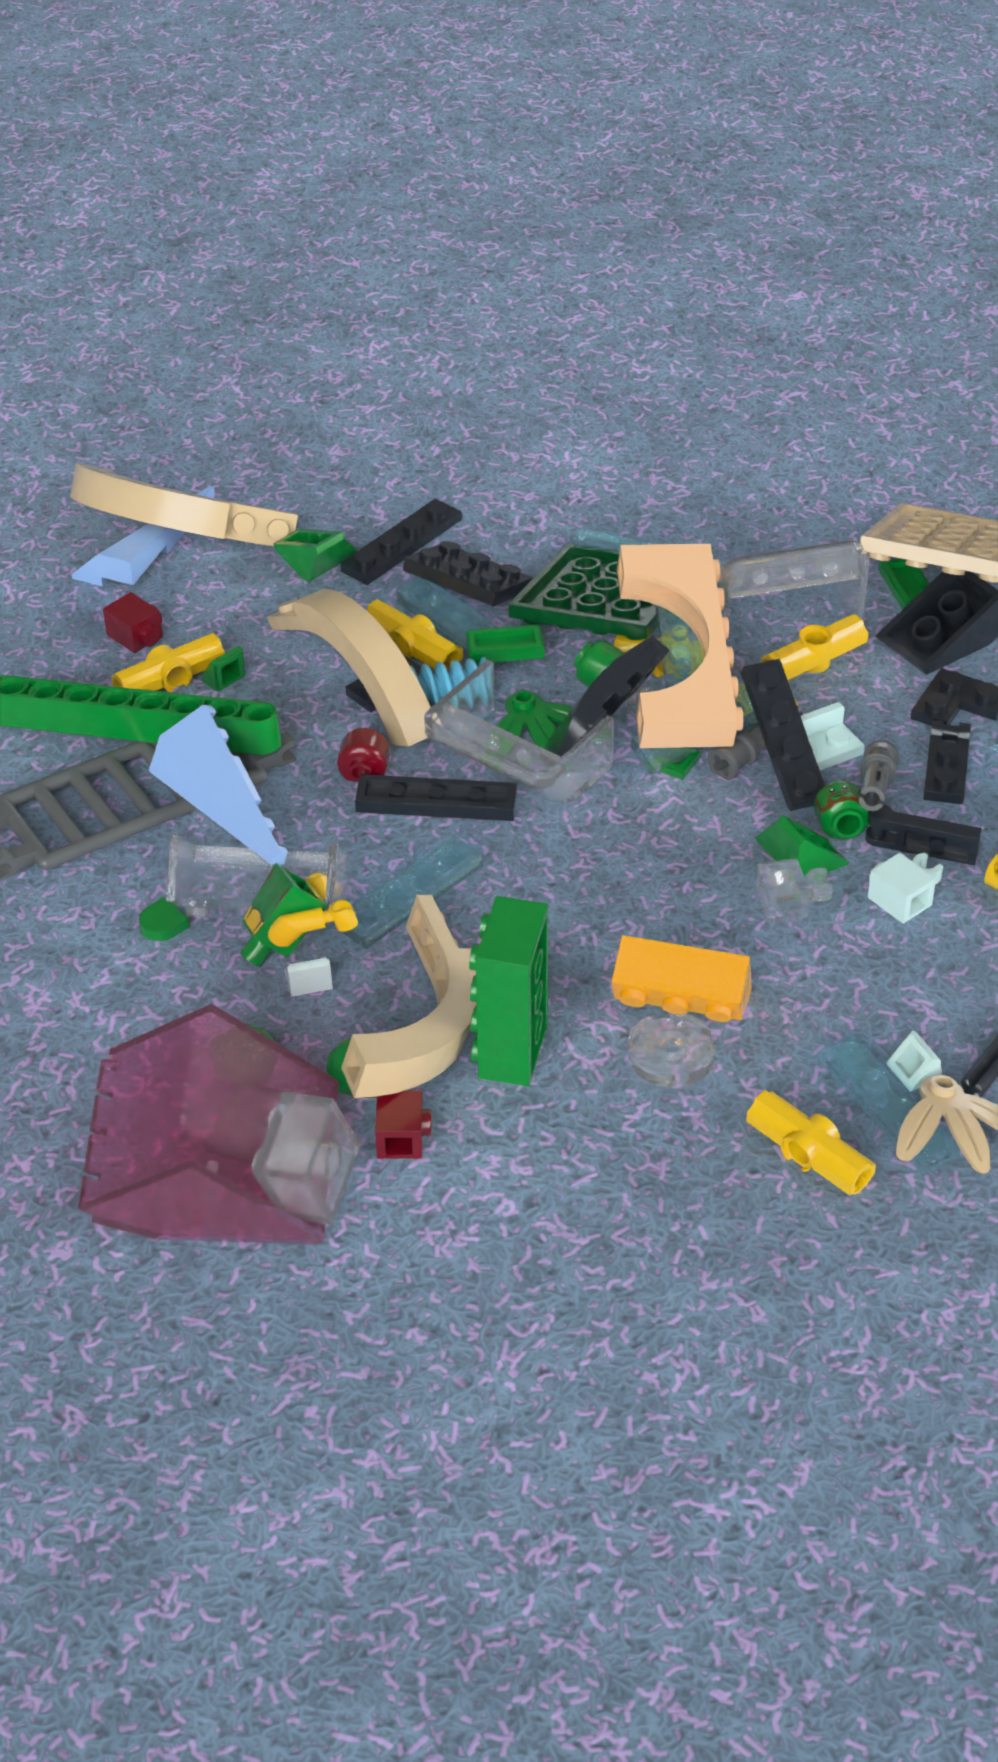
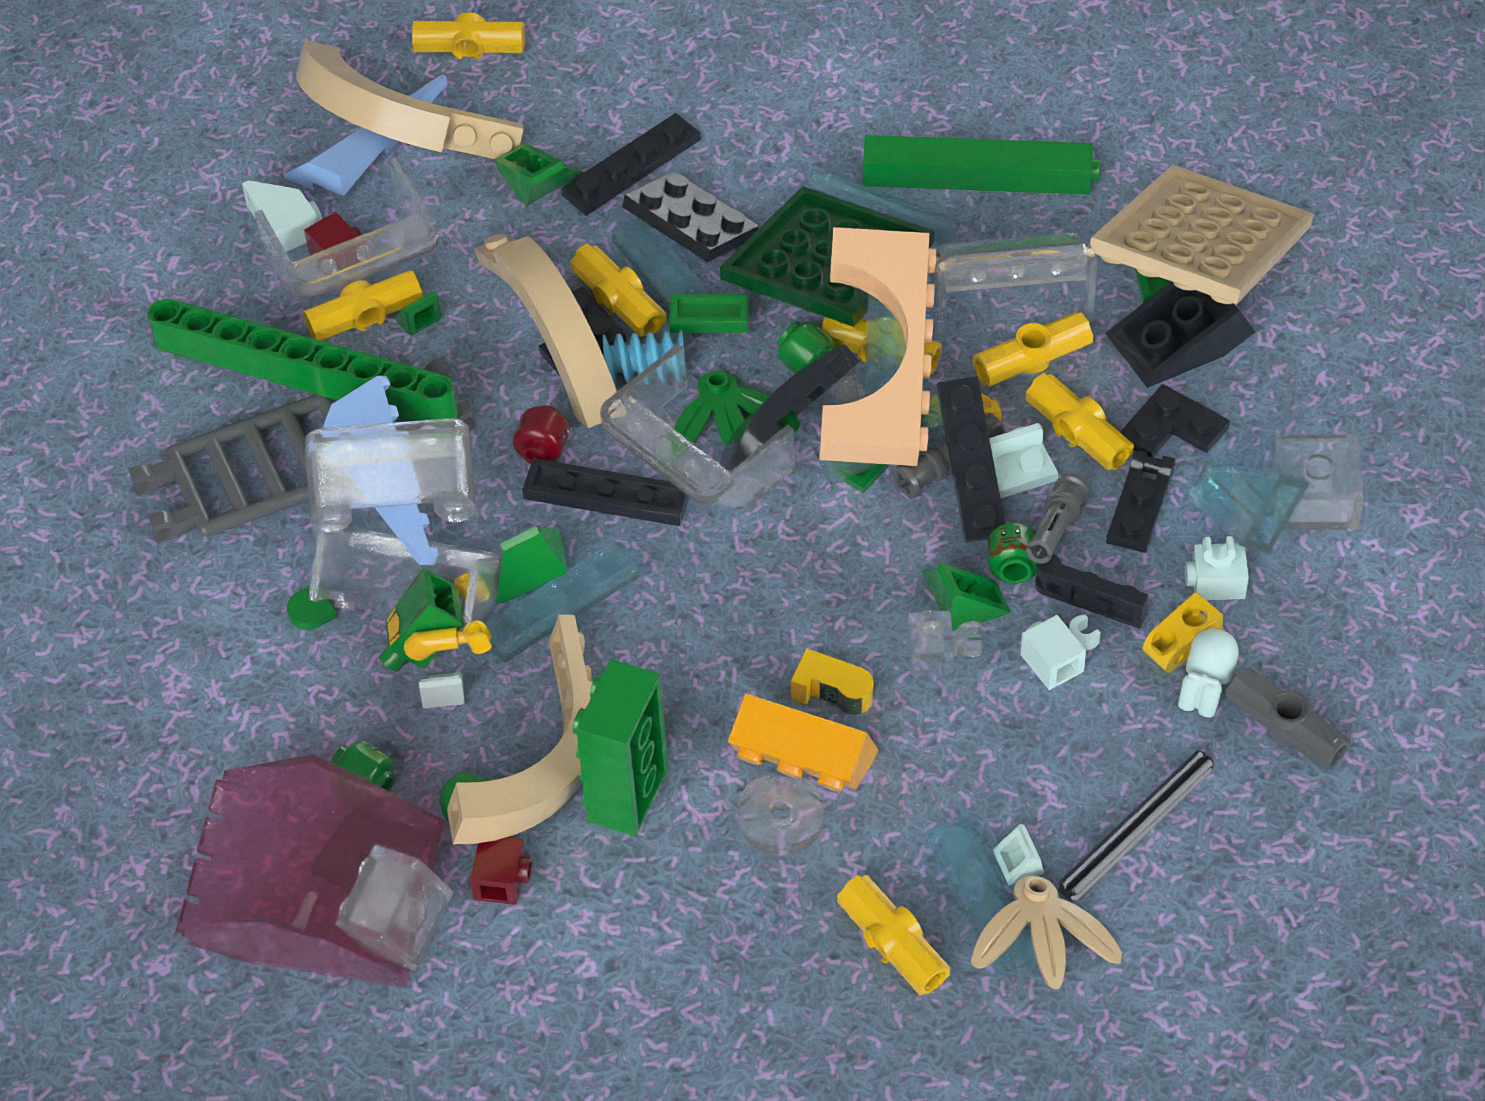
camera: 10 degrees right, 10 degrees up
(75, 601) = (284, 209): none -> light aqua slope
(131, 637) = (359, 256): none -> clear windscreen
(227, 777) = (392, 468): none -> clear windscreen
(243, 453) = (468, 36): none -> yellow piece
(375, 857) = (530, 562): none -> green slope
(697, 929) = (832, 681): none -> yellow leg
(727, 514) = (979, 164): none -> green brick
(873, 702) = (1079, 421): none -> yellow piece

